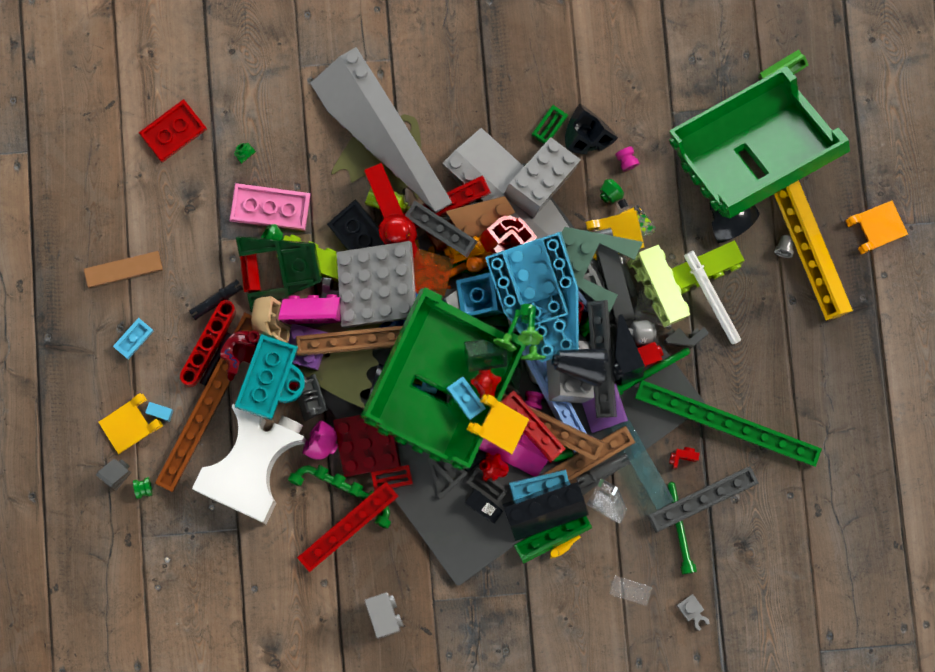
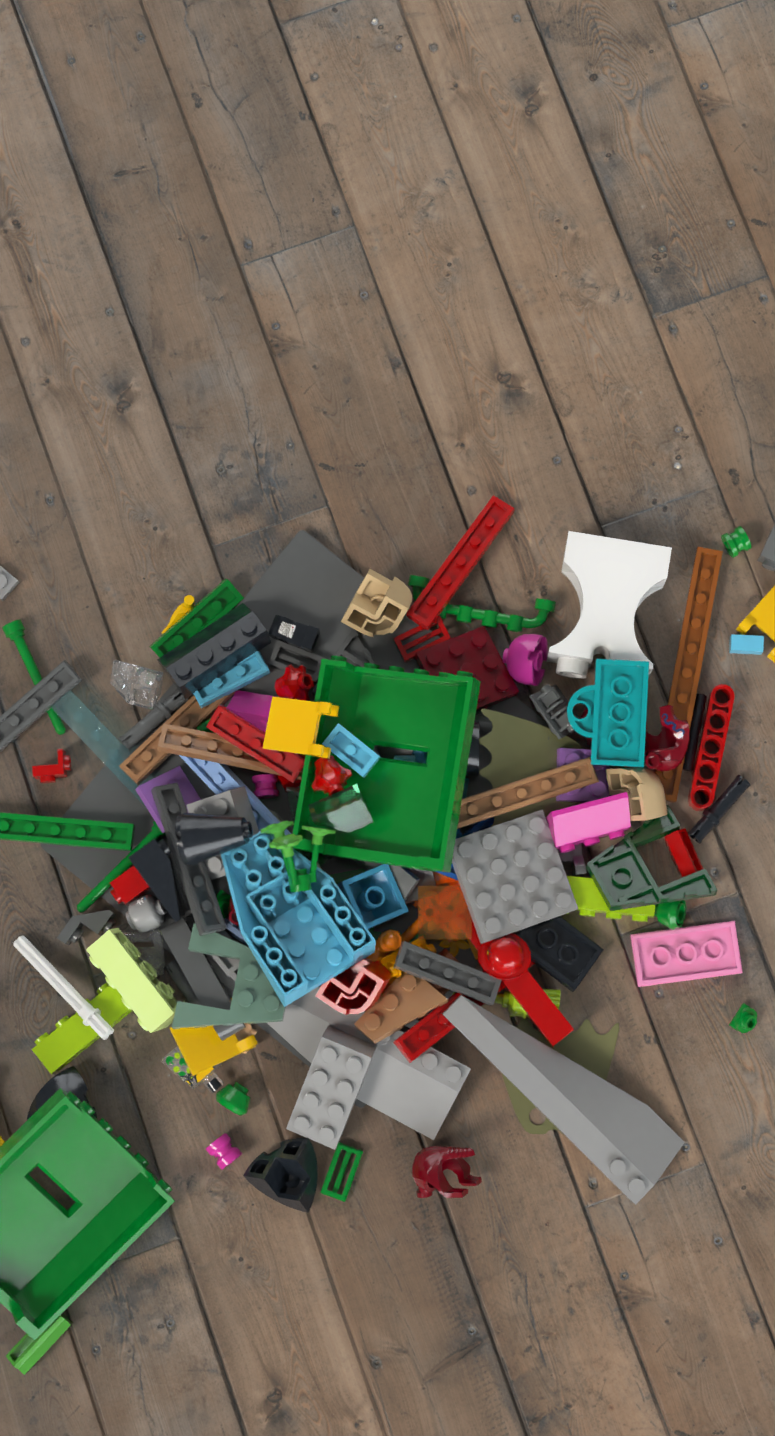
camera: 175 degrees right, 0 degrees up
(383, 615) = (383, 460): light grey brick -> none
(417, 508) = (378, 605): none -> tan brick
(490, 105) = (429, 1168): none -> dark red piece
(630, 590) = (81, 582): clear plate -> none

